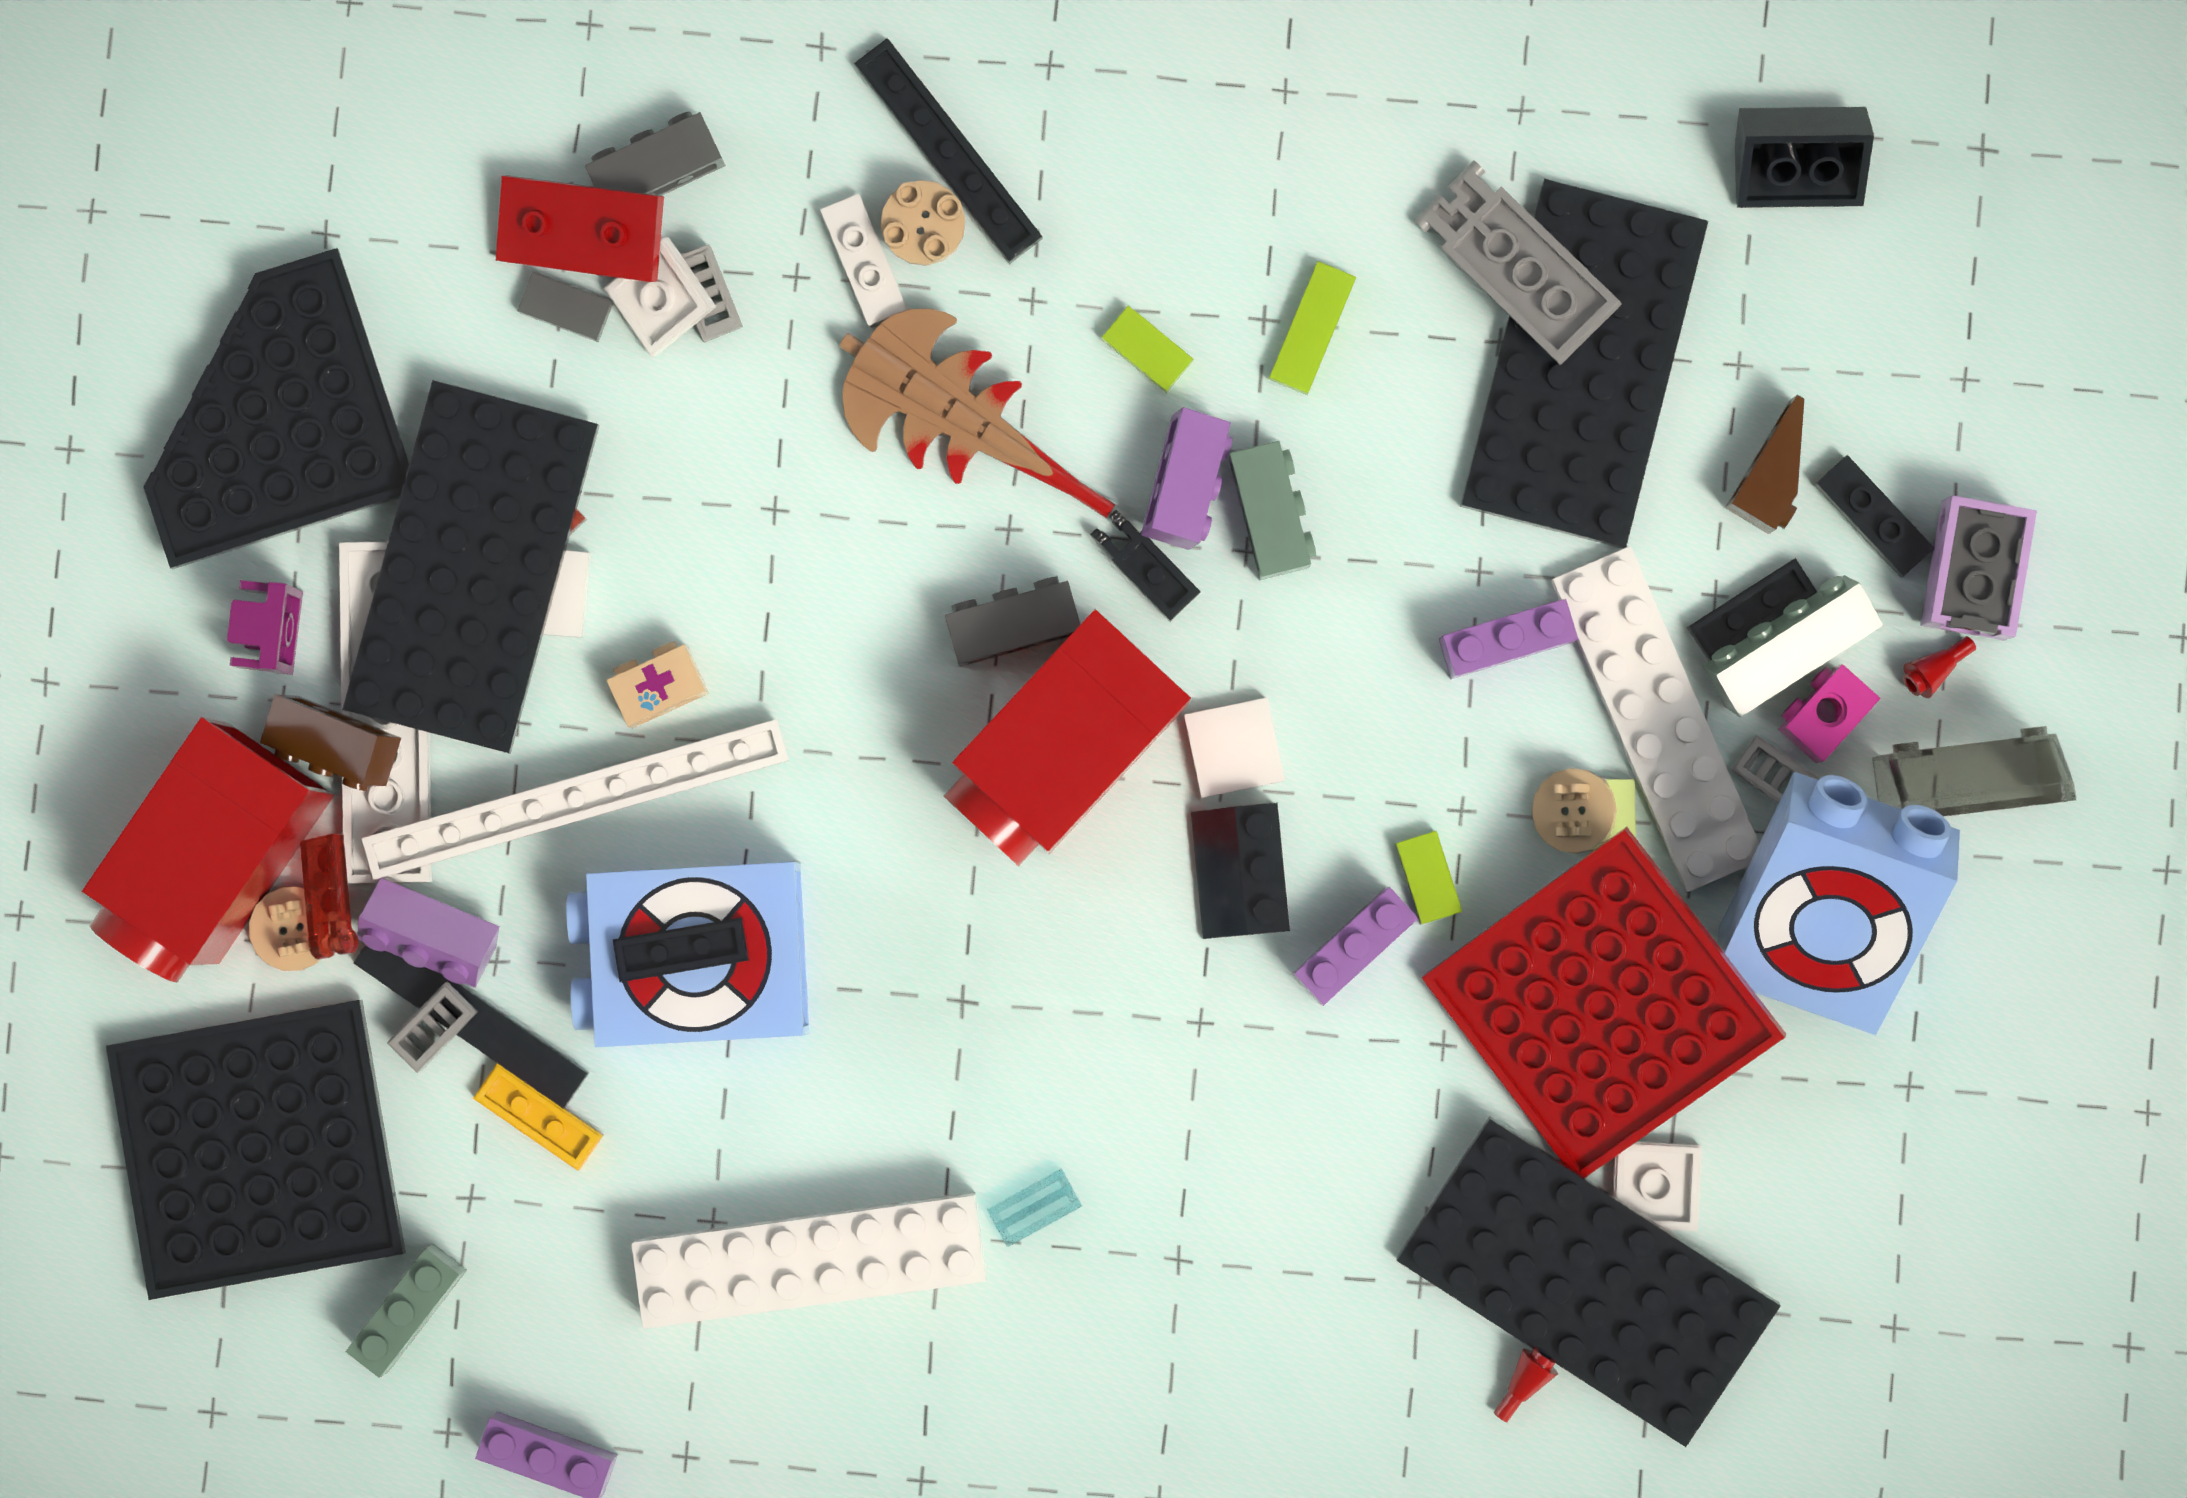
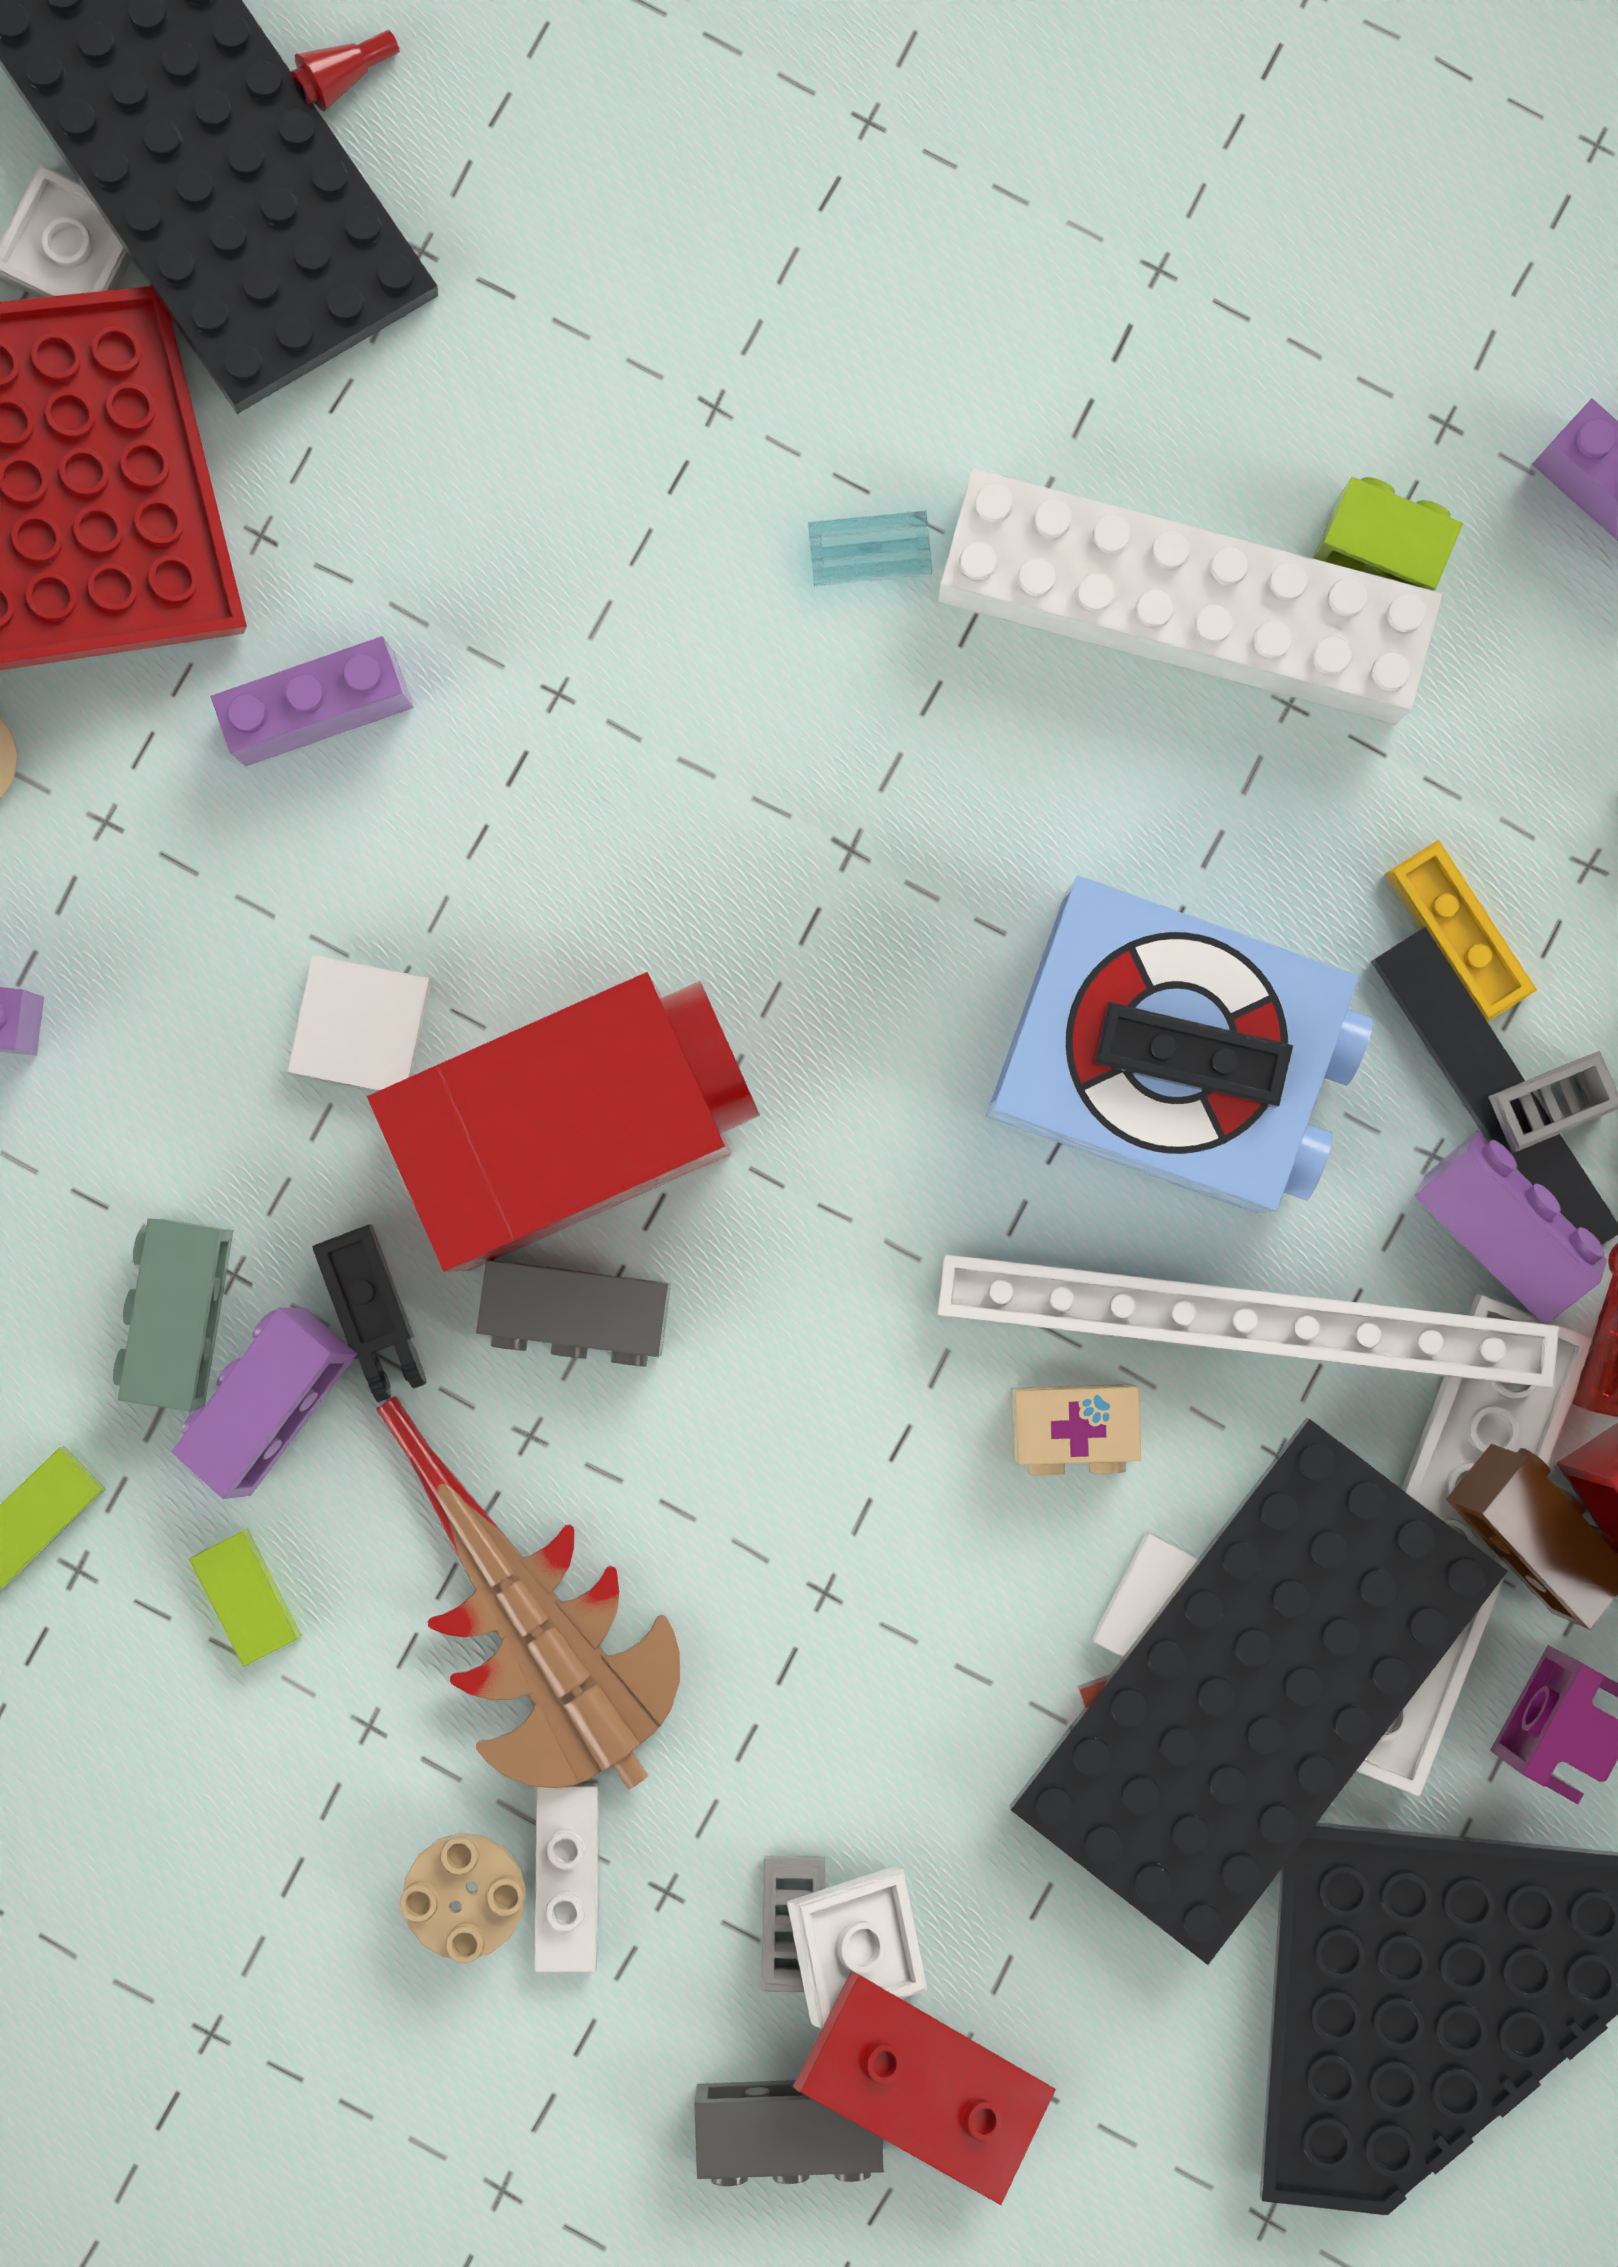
camera: 150 degrees left, 0 degrees up
(565, 307) = (988, 1985): dark grey tile -> none
(693, 1357) = (1388, 534): none -> lime brick
(948, 151) = (393, 1979): black tile -> none
(1240, 871) = (418, 860): black slope -> none
(1428, 877) = (182, 754): lime tile -> none

